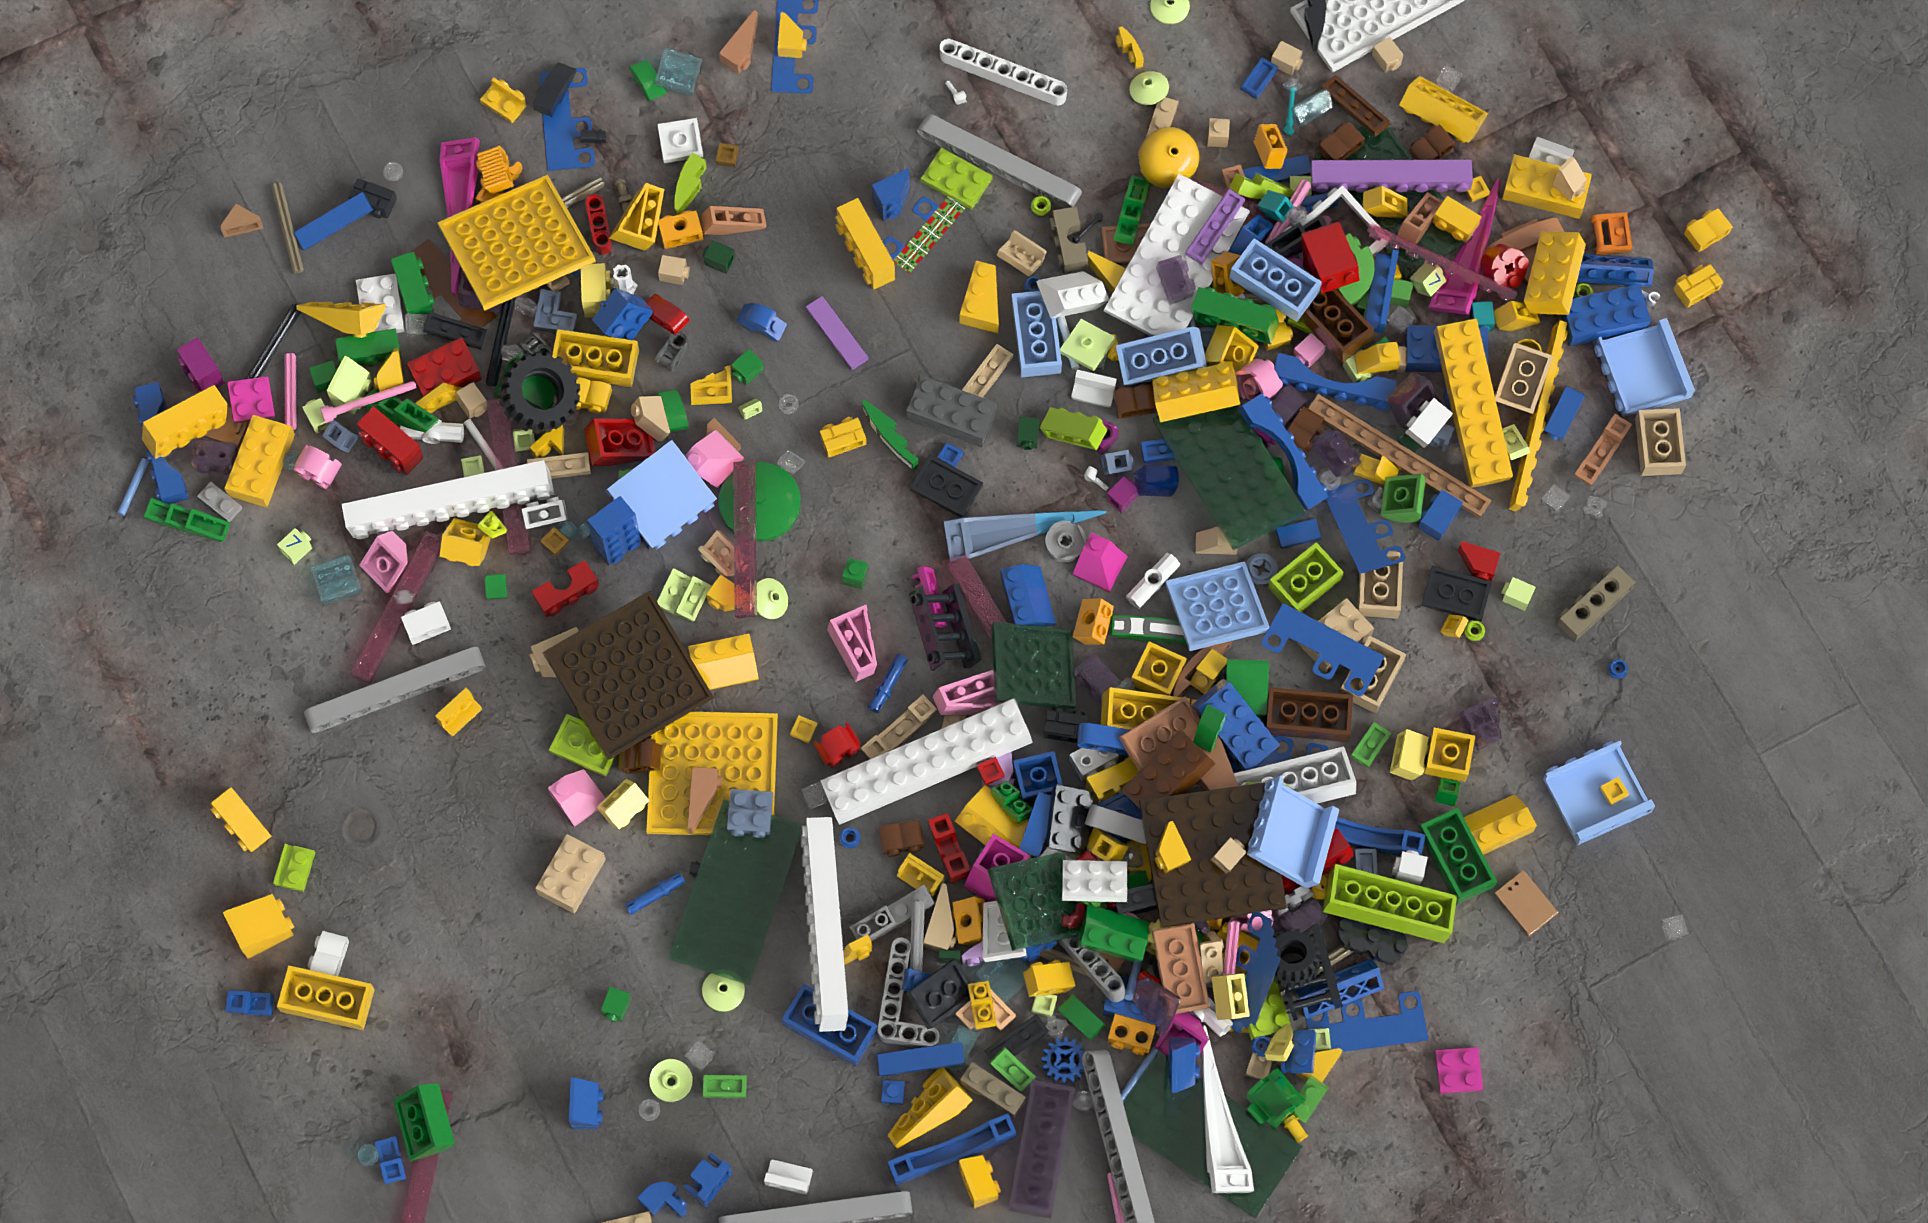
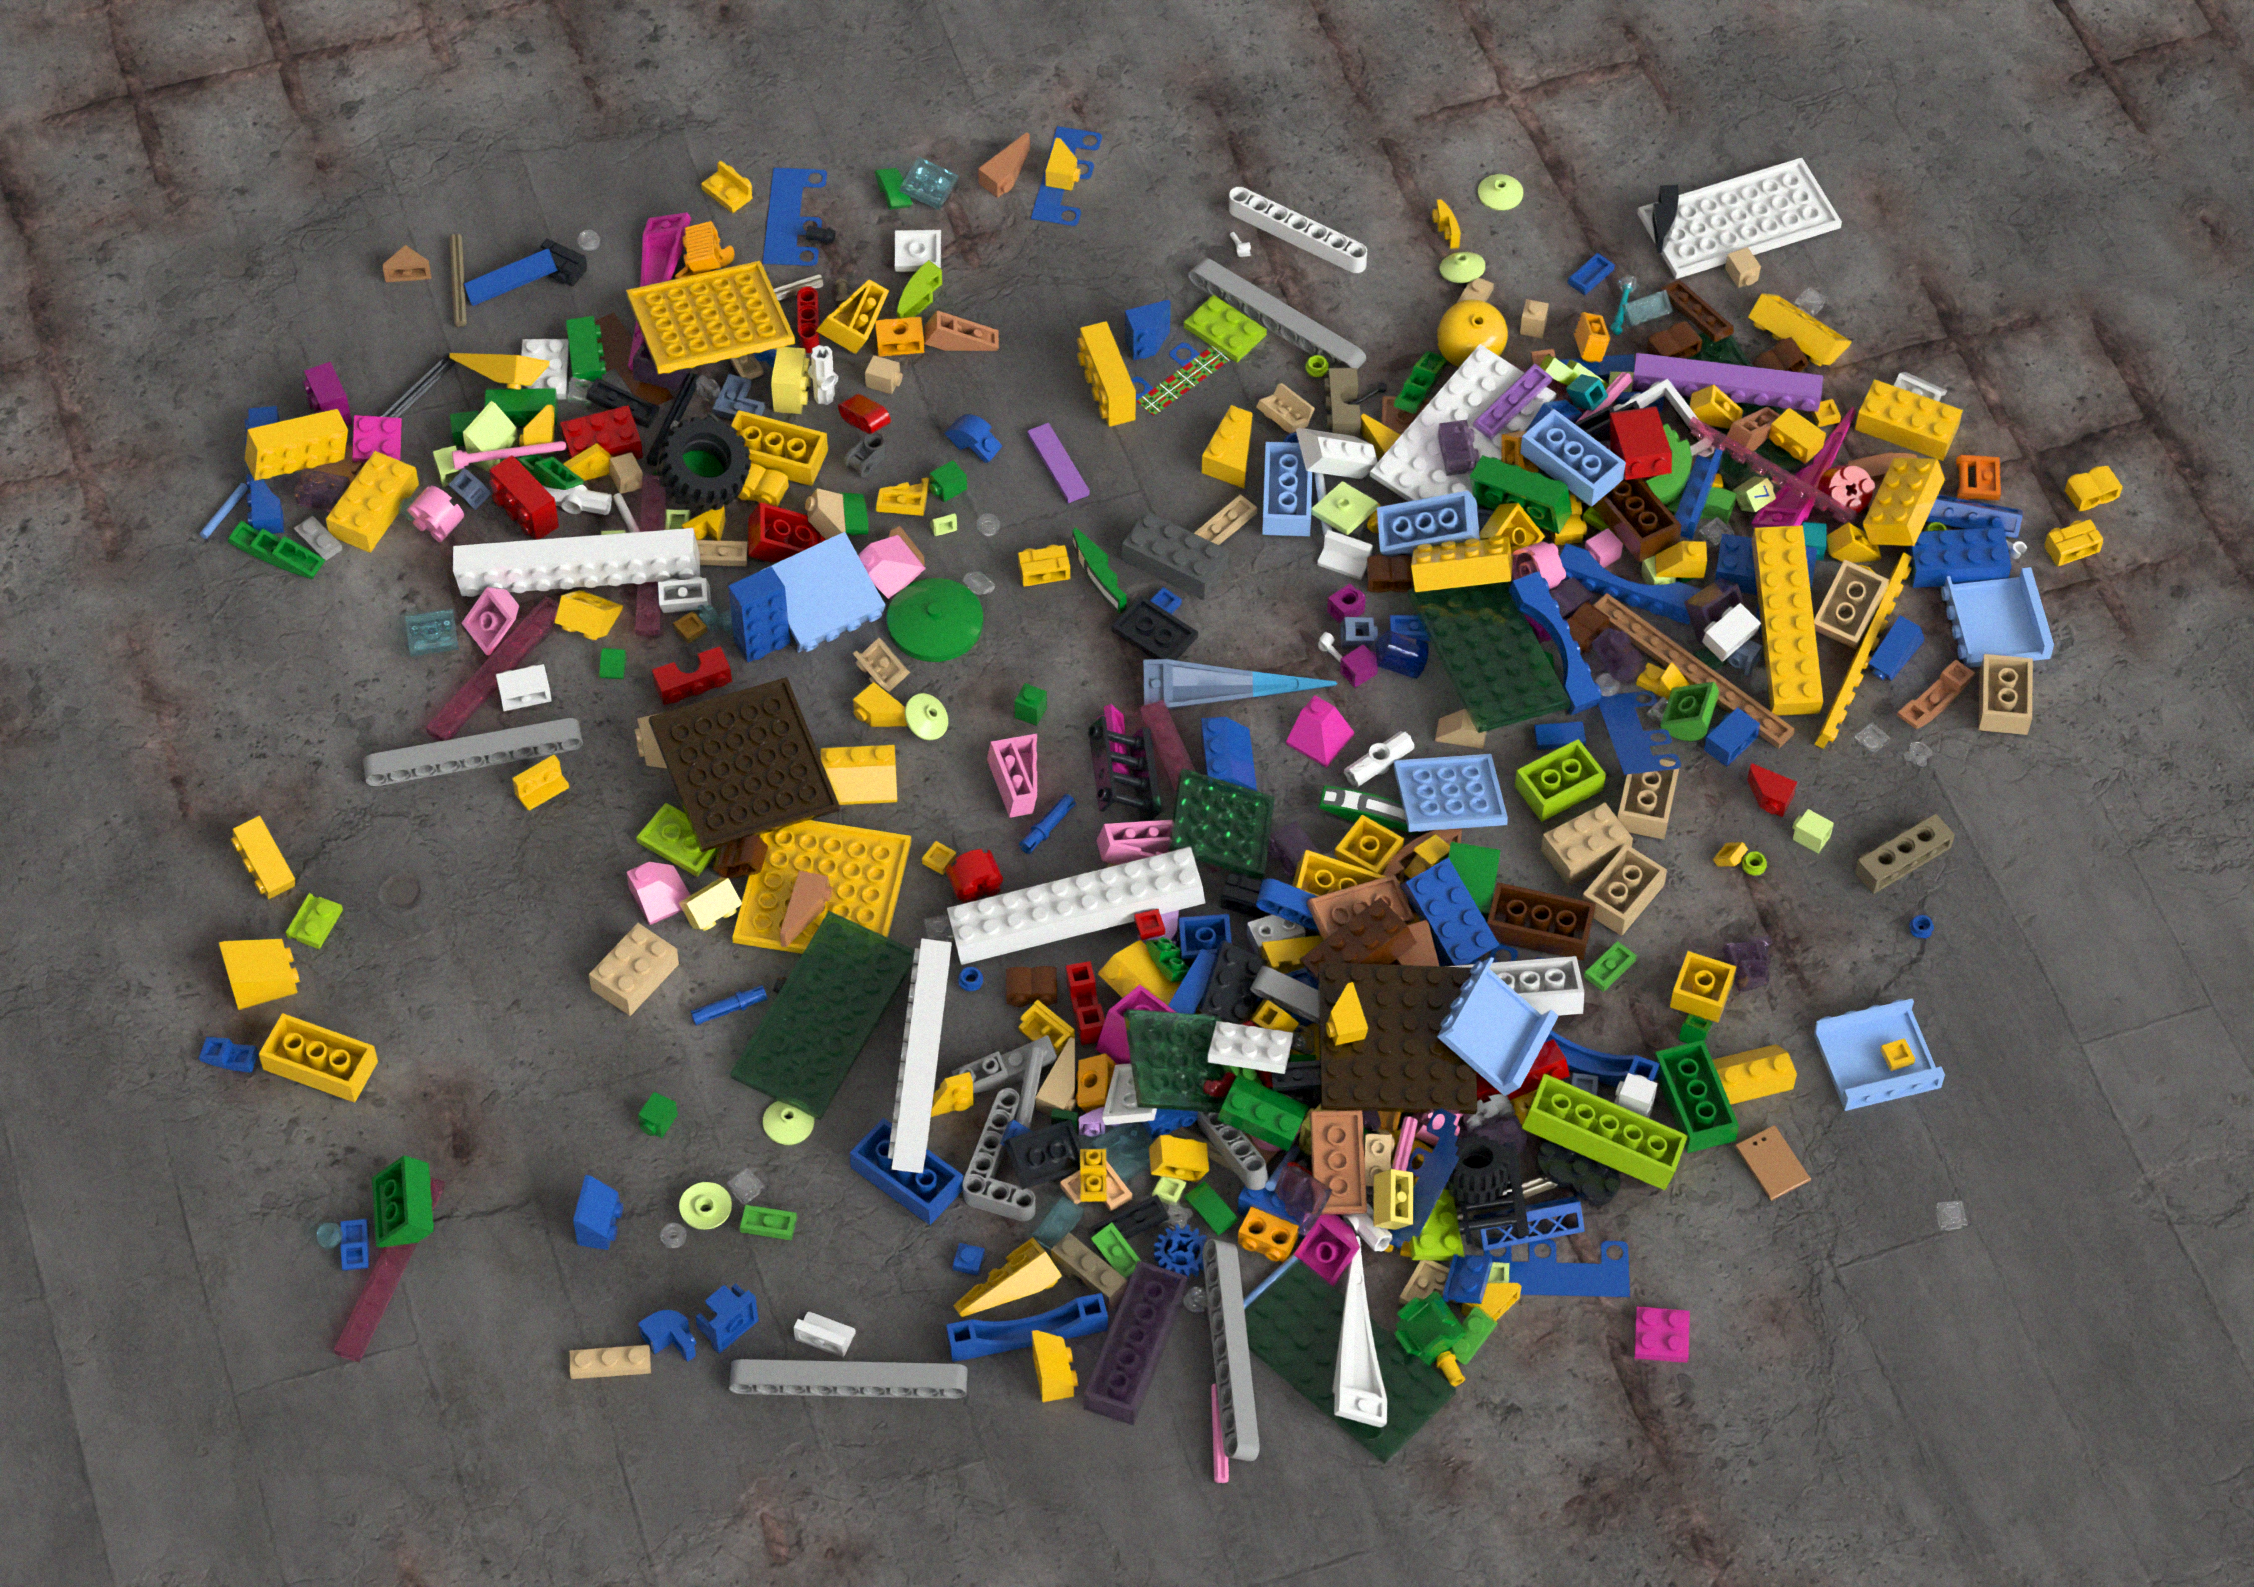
camera: 10 degrees right, 15 degrees down
(290, 390) = (424, 437): bright pink axle -> none
(295, 545) = (392, 591): yellowish green brick -> none
(329, 953) = (335, 1011): white brick -> none
(404, 597) = (504, 656): clear plate -> none
(492, 525) = (621, 600): neon yellow piece -> none
(553, 89) = (785, 183): black slope -> none
(622, 315) = (815, 404): blue brick -> none
(683, 595) = (826, 702): yellowish green slope -> none
(718, 256) = (938, 368): dark green brick -> none
(727, 154) = (968, 271): pearl gold plate -> none
(745, 539) = (909, 647): clear pink plate -> none
(750, 813) = (856, 928): sand blue plate -> none
(901, 729) = (1074, 862): tan slope -> none
(921, 1059) = (1009, 1225): blue tile -> none
(1028, 433) = (1259, 589): dark green brick -> none
(1061, 552) = (1270, 702): light grey plate -> none
(1073, 428) = (1313, 587): lime brick -> none
(1093, 621) = (1300, 790): light orange brick -> none
(1182, 1063) = (1322, 1264): blue slope -> none
(1209, 727) = (1416, 901): green slope -> none
(1229, 855) = (1414, 1035): tan brick -> none
(1256, 561) = (1505, 758): sand blue gear -> none
(1265, 1041) = (1423, 1261): blue plate -> none
(1280, 1045) = (1445, 1266): light yellow plate -> none
(1287, 58) = (1626, 256): tan brick -> none
(1297, 214) = (1610, 399): clear plate -> none
(1328, 642) = (1574, 844): blue piece -> none
(1403, 359) = (1710, 570): tan tile -> none
(1409, 755) = (1654, 981): light yellow brick -> none
(1456, 593) = (1738, 820): black plate -> none
(1514, 442) = (1831, 672): yellowish green plate -> none
(1570, 179) = (1934, 404): tan slope -> none

